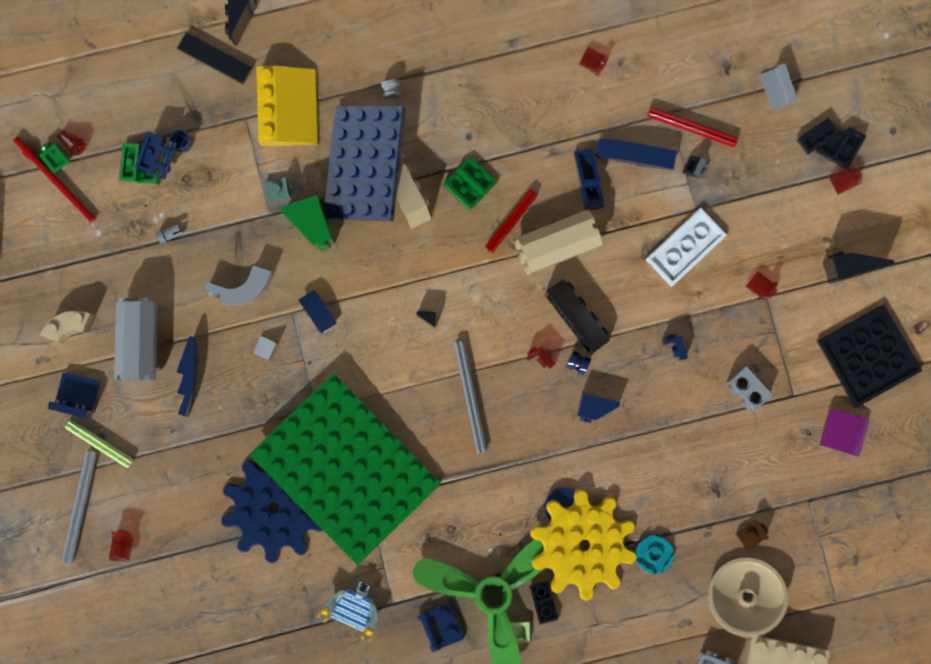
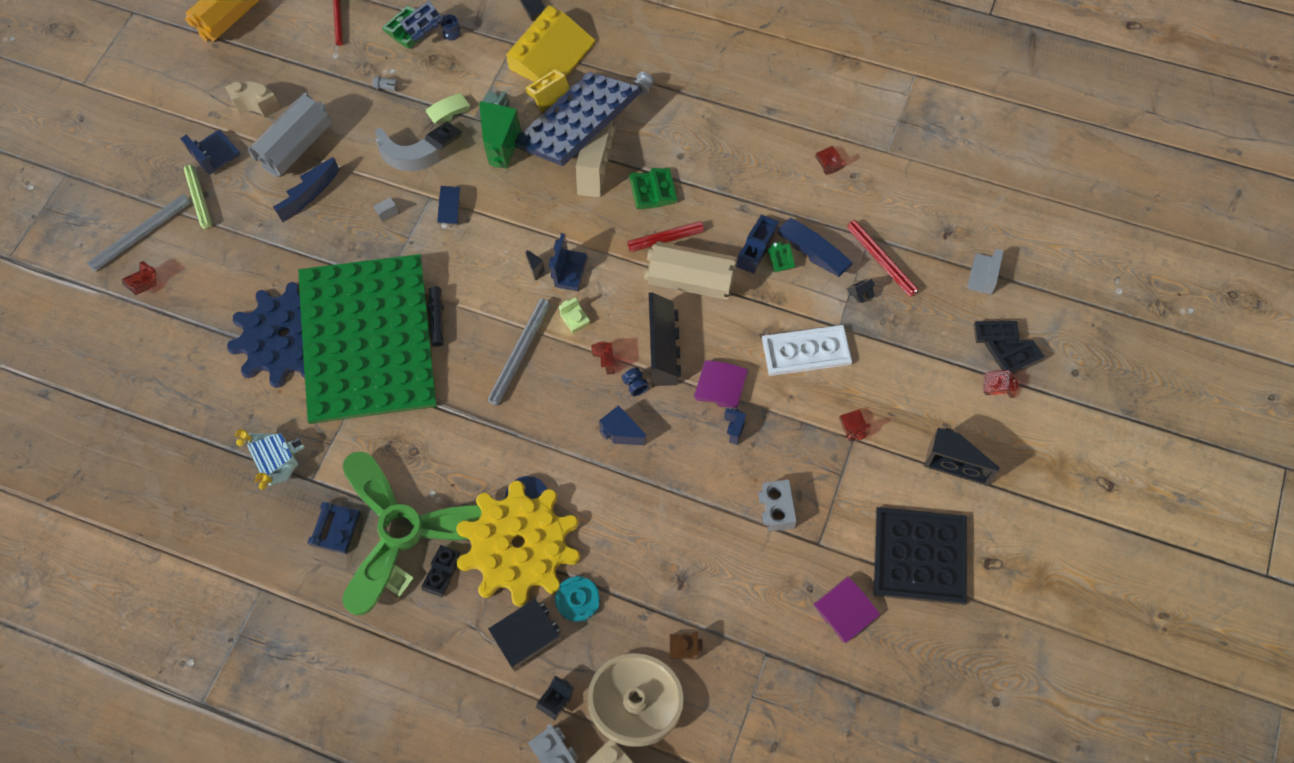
camera: 40 degrees right, 20 degrees down
(243, 221) = (446, 108): none -> yellowish green slope
(263, 253) = (443, 135): none -> black plate
(315, 148) = (548, 89): none -> yellow panel
(382, 411) = (436, 320): none -> black pin
(457, 301) = (567, 265): none -> dark blue bracket
(490, 339) = (573, 315): none -> yellowish green bracket
(615, 179) = (781, 256): none -> green bracket
(639, 605) = (525, 633): none -> black panel
(642, 320) = (721, 384): none -> magenta slope
(691, 633) = (555, 697): none -> black bracket

